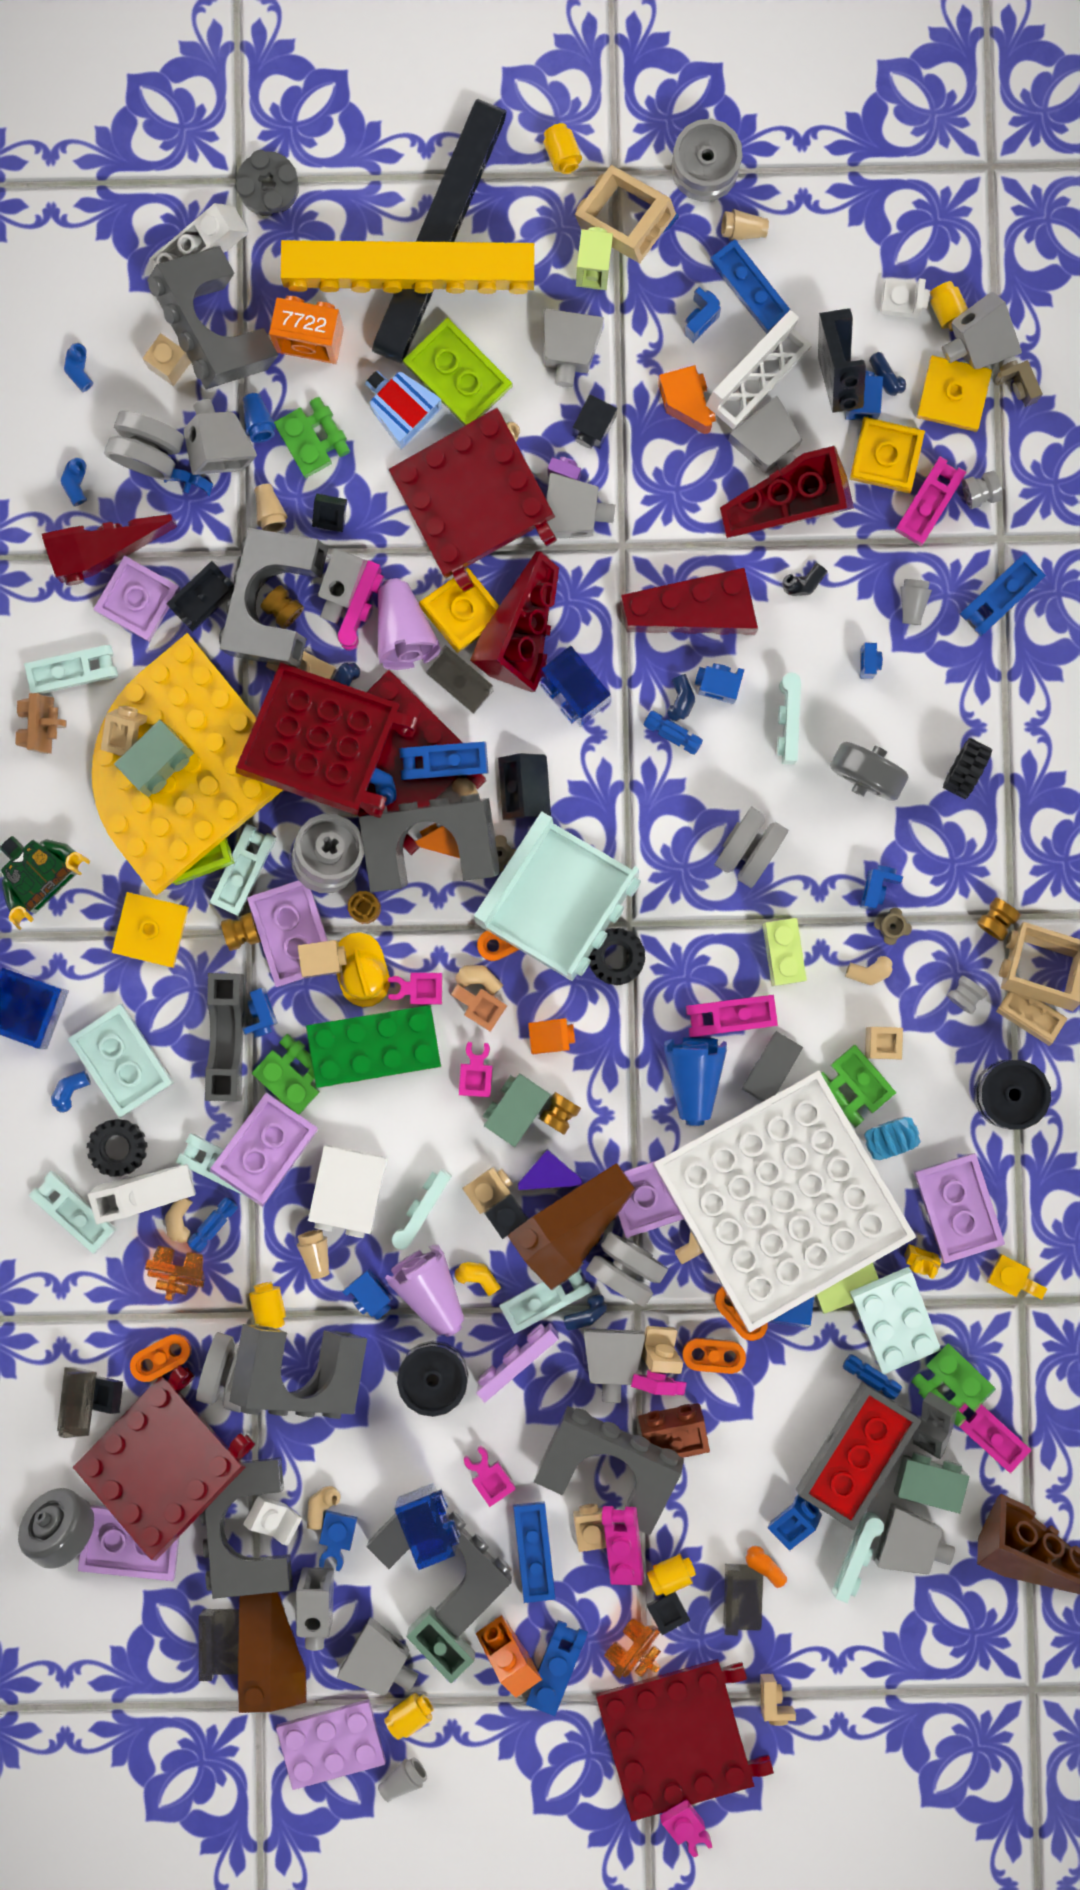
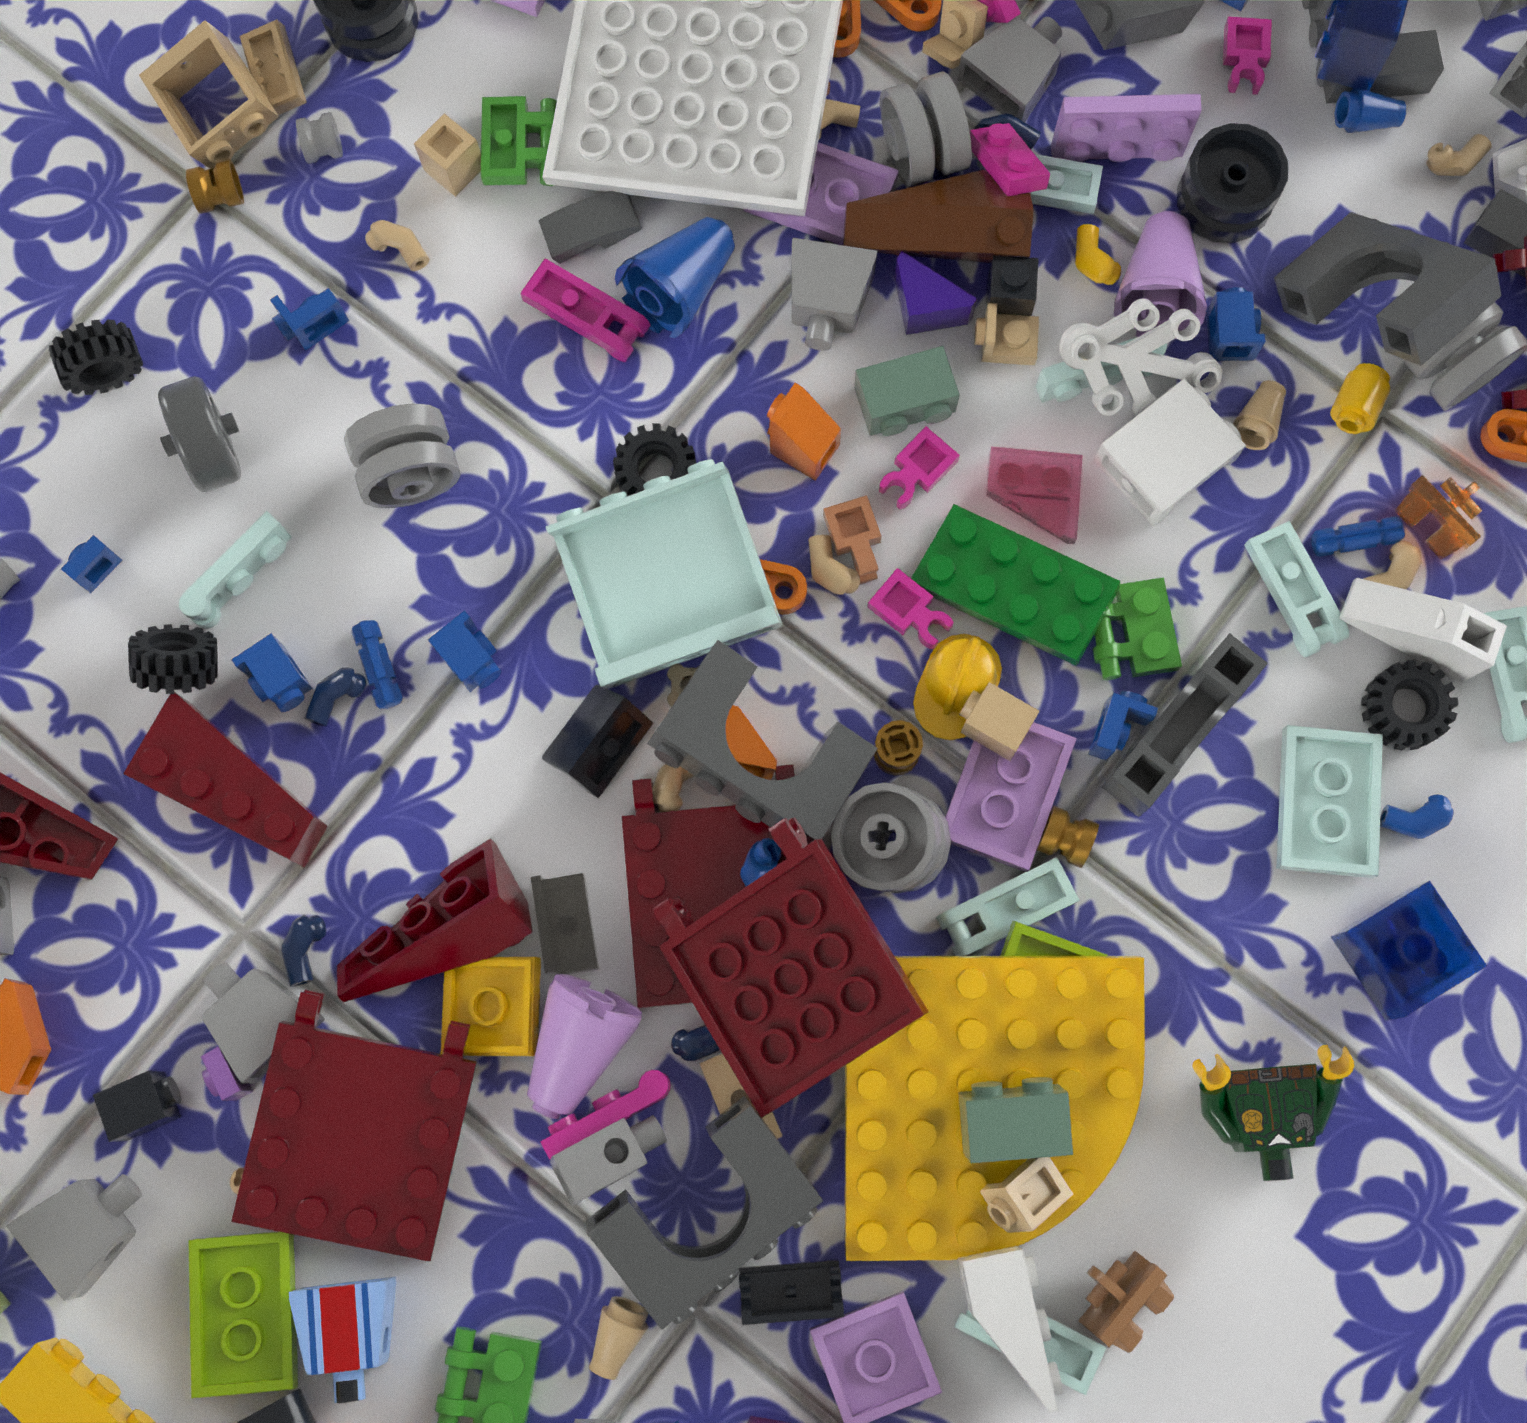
camera: 140 degrees left, 10 degrees down
(93, 668) = (1002, 1301): none -> white slope
(150, 929) = (1175, 929): yellow plate -> none
(264, 1149) = (1236, 563): lavender plate -> none
(284, 609) = (702, 1191): pearl gold wheel -> none
(329, 512) = (547, 1266): black plate -> none
(337, 1535) = (1463, 117): blue plate -> none
(388, 1493) = (1368, 111): none -> blue cone
(403, 1112) = (1038, 487): none -> clear pink wing
(432, 1203) = (1136, 355): none -> white plant
(445, 760) = (662, 835): blue plate -> none
(559, 1113) = (860, 351): pearl gold wheel -> none
(566, 1288) = (1008, 159): none -> dark pink plate
(574, 686) = (438, 797): clear blue brick -> none
(586, 559) = (296, 945): none -> dark blue arm
(607, 1134) = (828, 288): none -> light grey torso
(628, 774) = (466, 653): none -> blue brick
(766, 637) = (172, 659): none -> black tyre
(784, 952) = (469, 326): yellowish green brick -> none
(804, 584) = (82, 709): black arm -> none
(891, 935) = (330, 257): dark tan plate -> none
(892, 1138) = (527, 52): dark azure gear -> none

